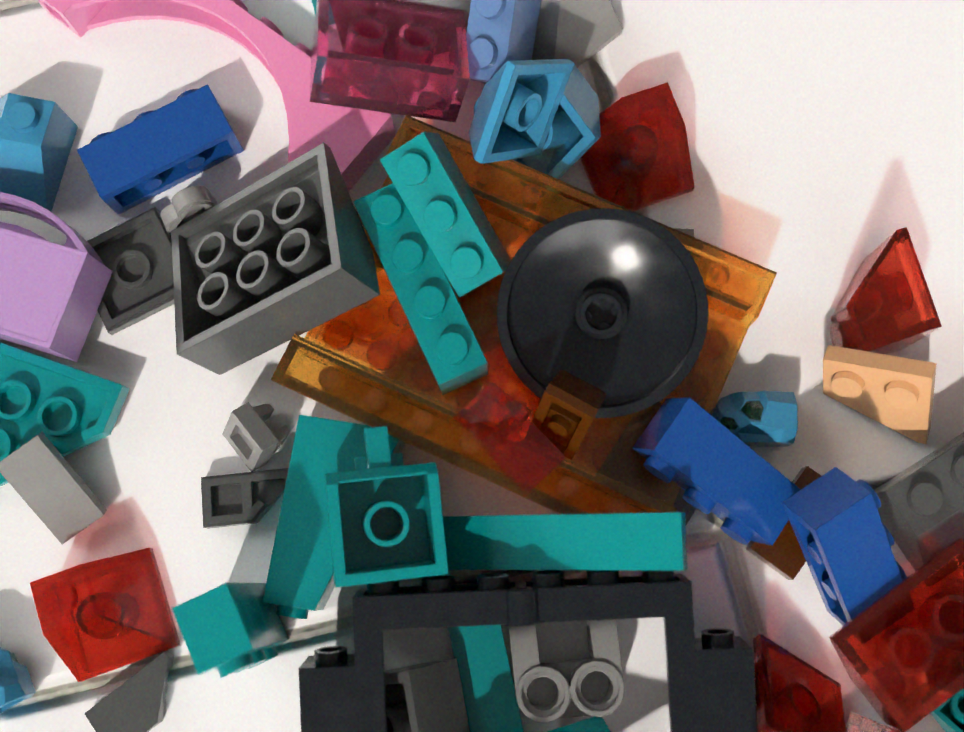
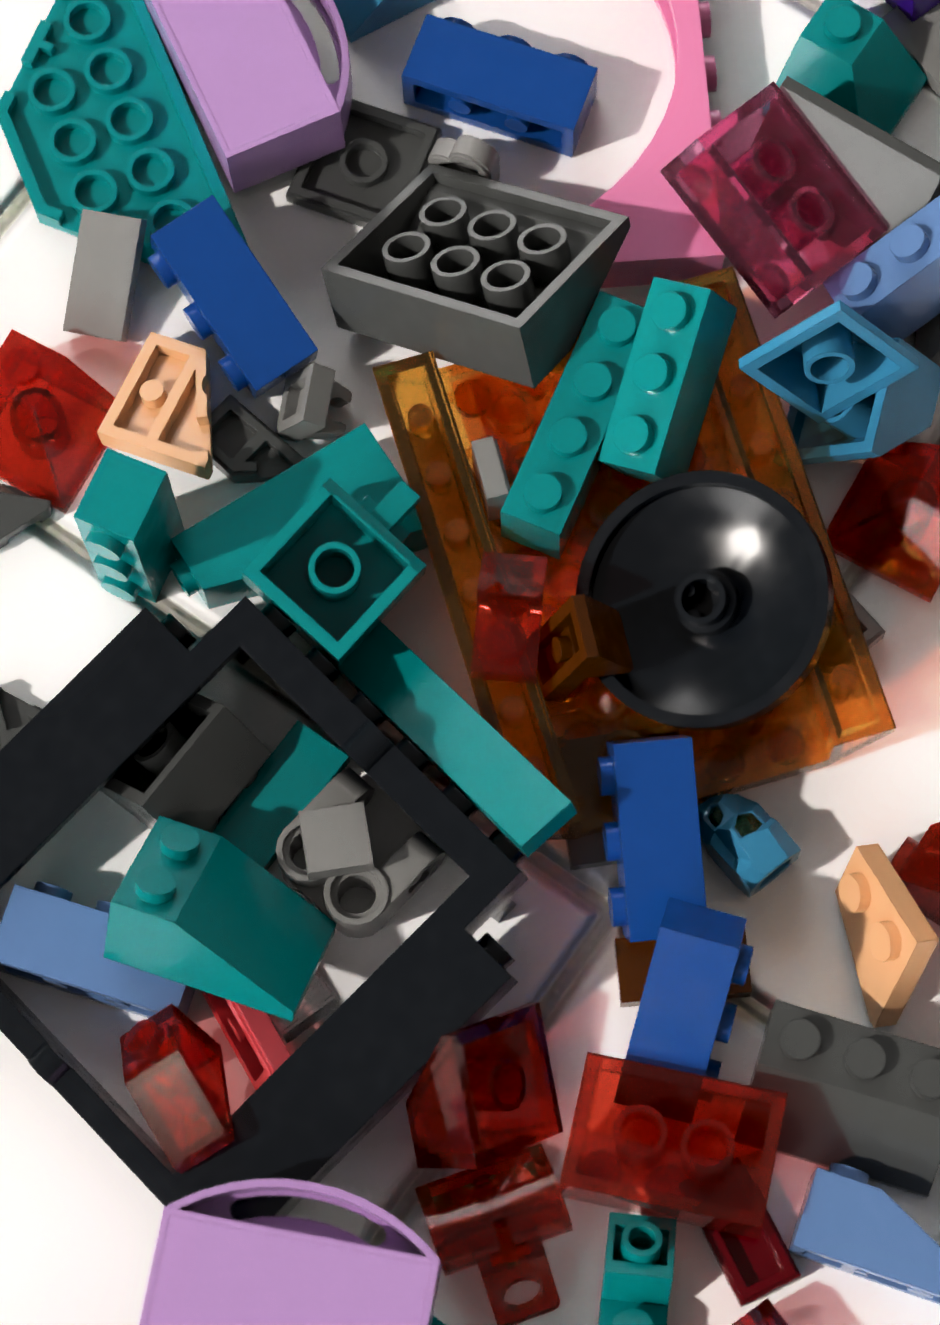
camera: 45 degrees right, 5 degrees down
(139, 424) = (230, 298): none -> blue brick
(172, 526) = (165, 407): none -> light nougat wing
(405, 369) = (490, 475): none -> light grey tile
(556, 674) = (336, 840): none -> light grey tile

